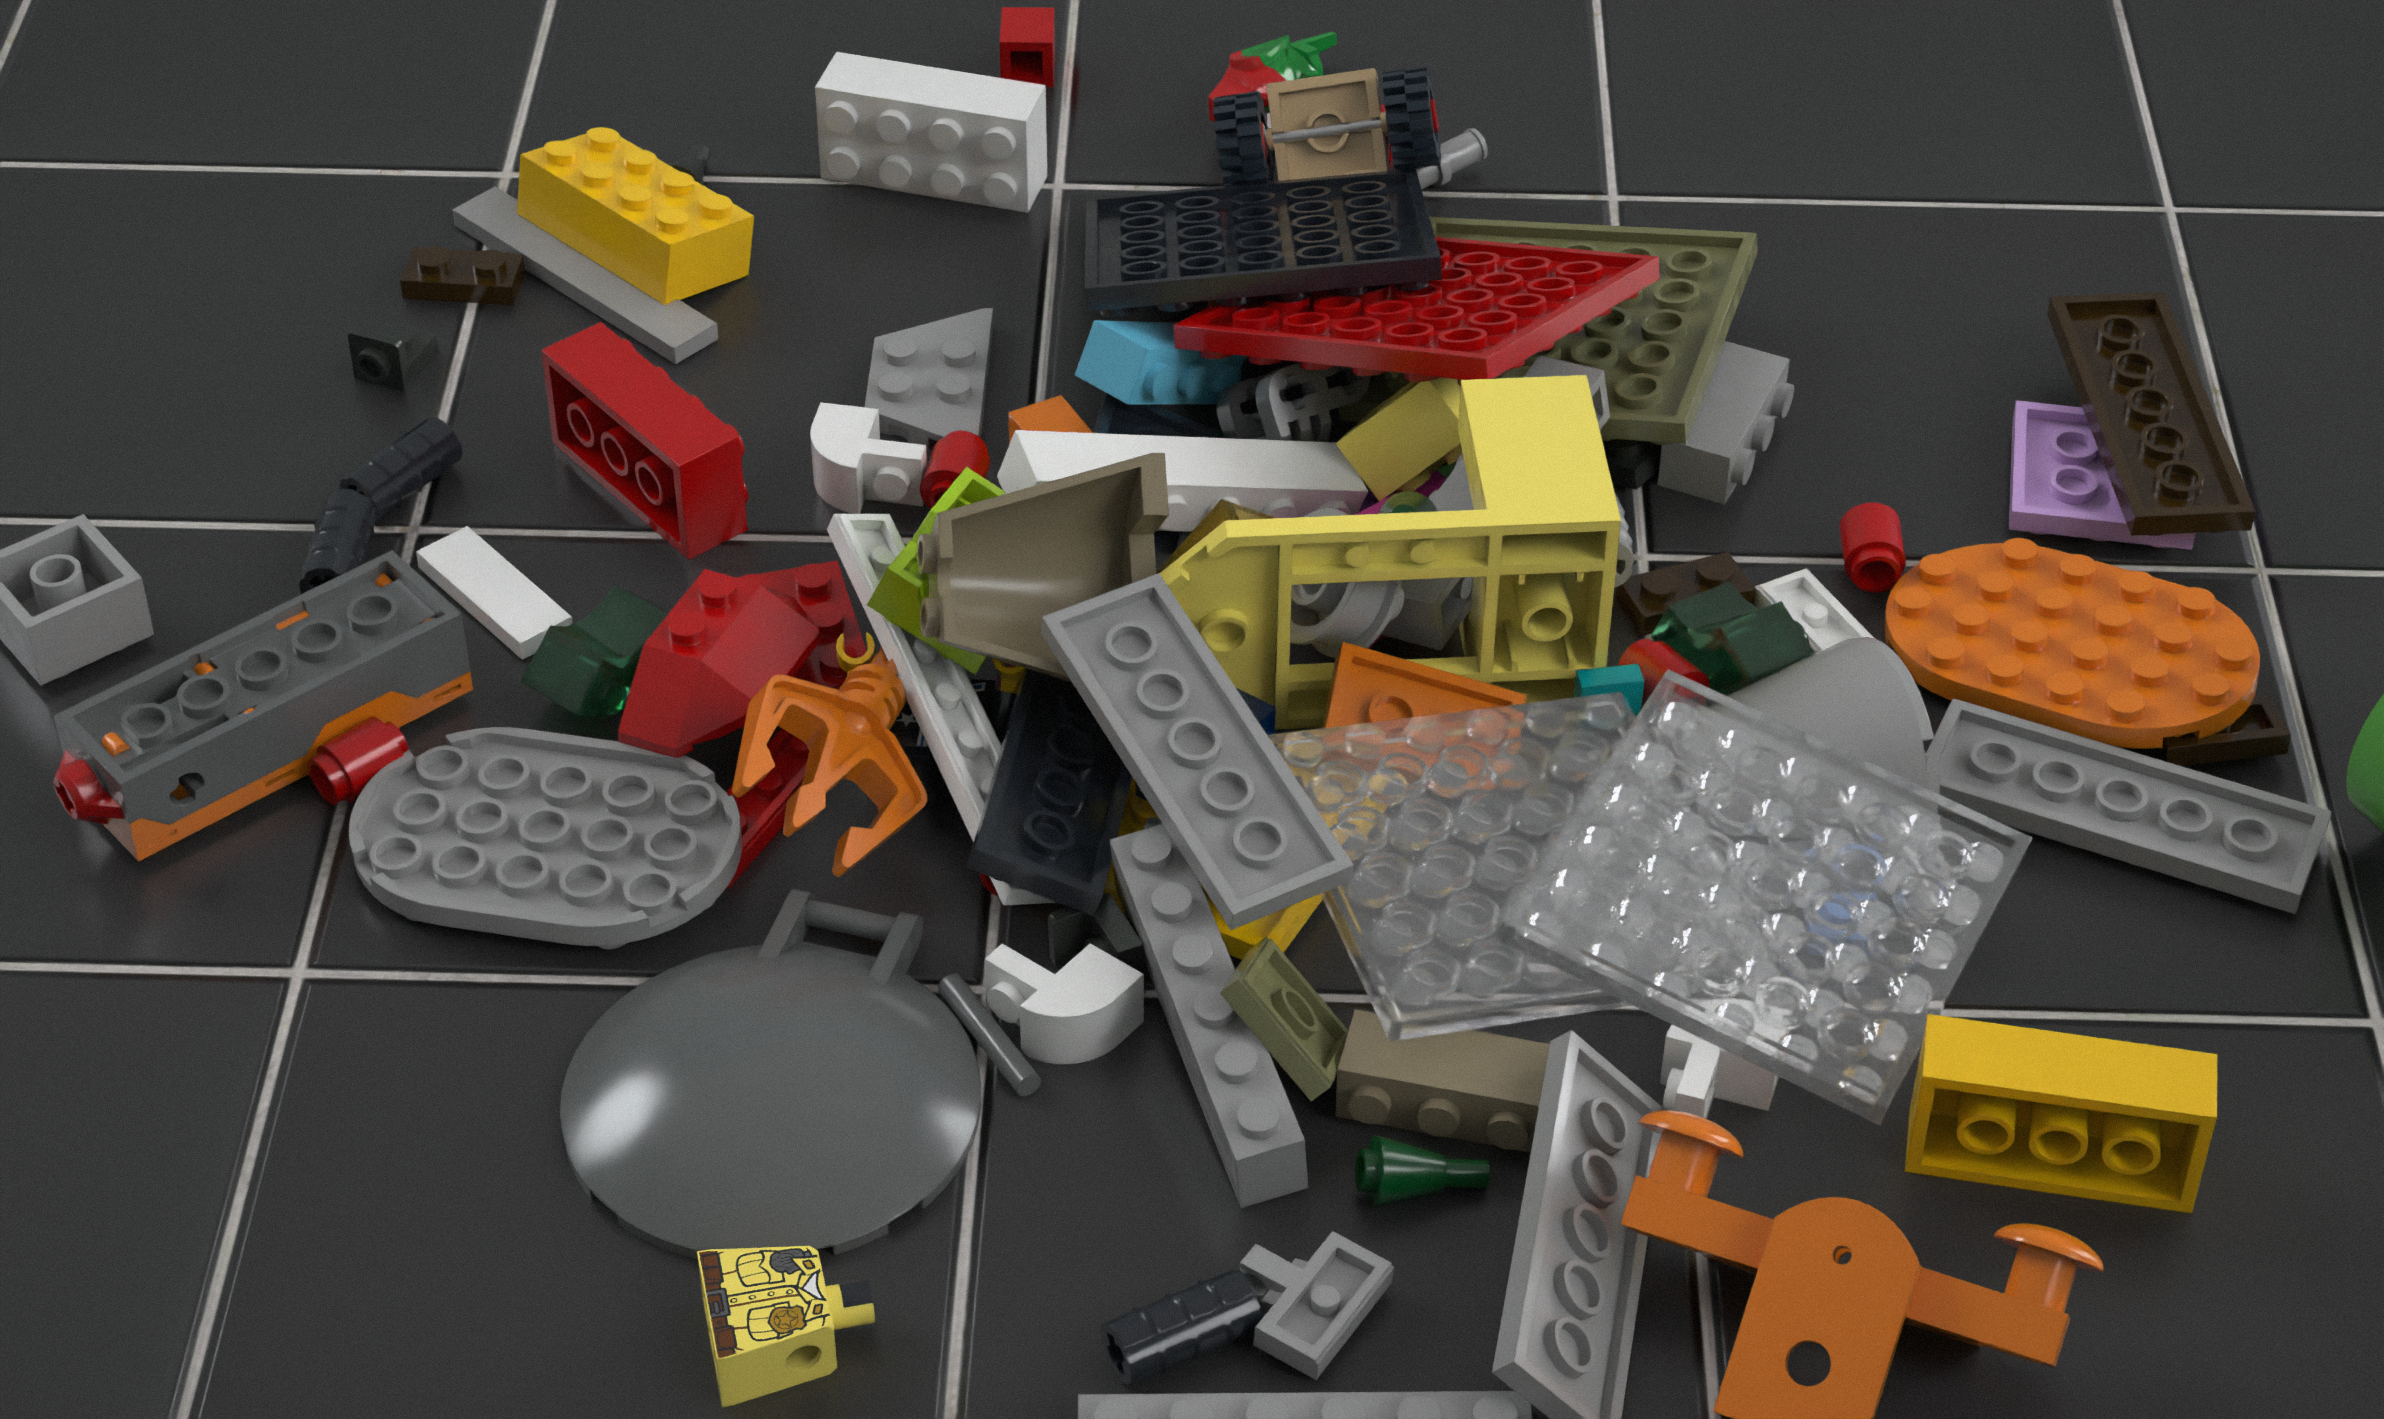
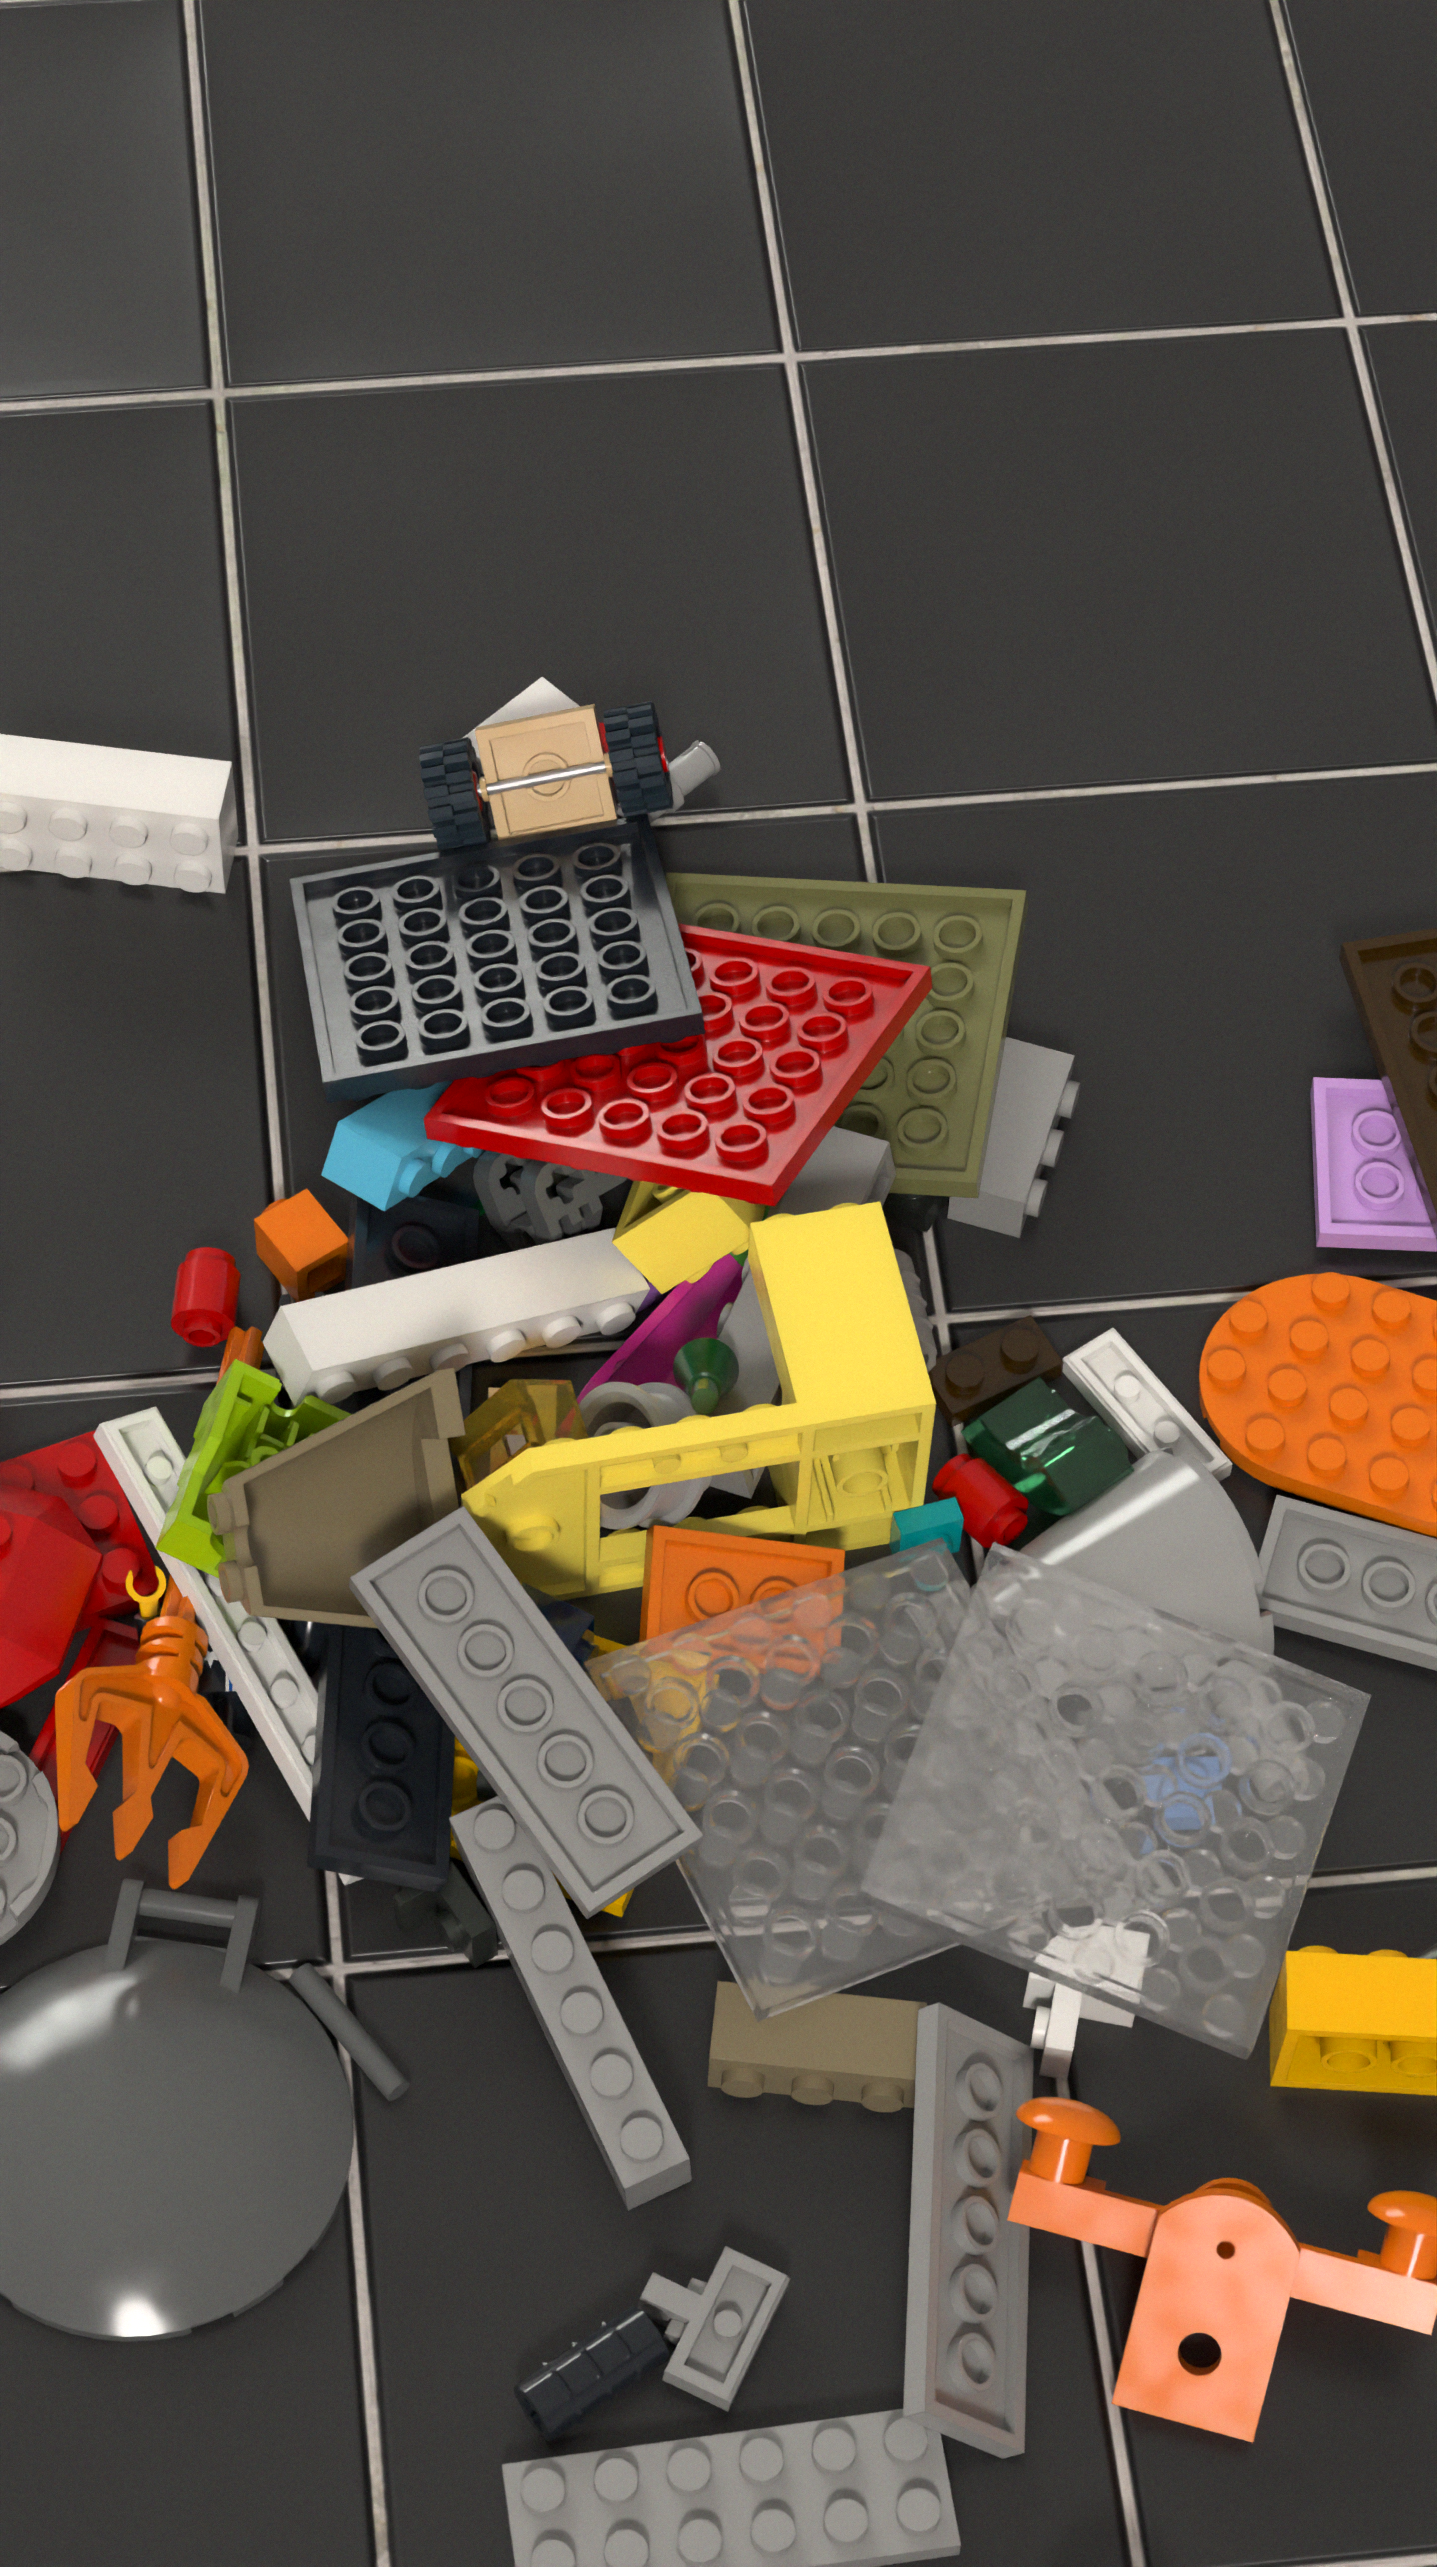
camera: 10 degrees left, 15 degrees up
(774, 1317) = (191, 2414): light yellow torso -> none
(857, 465) = (92, 1297): white brick -> none
(932, 377) = (158, 1158): light grey wing -> none
(1028, 44) = (192, 656): red brick -> none
(1069, 1013) = (431, 2005): white brick -> none
(1272, 63) = (466, 676): animal -> none
(1287, 1017) = (653, 2005): olive tile -> none
(1400, 1171) = (782, 2158): dark green cone -> none
(1872, 546) = (1179, 1294): red brick -> none

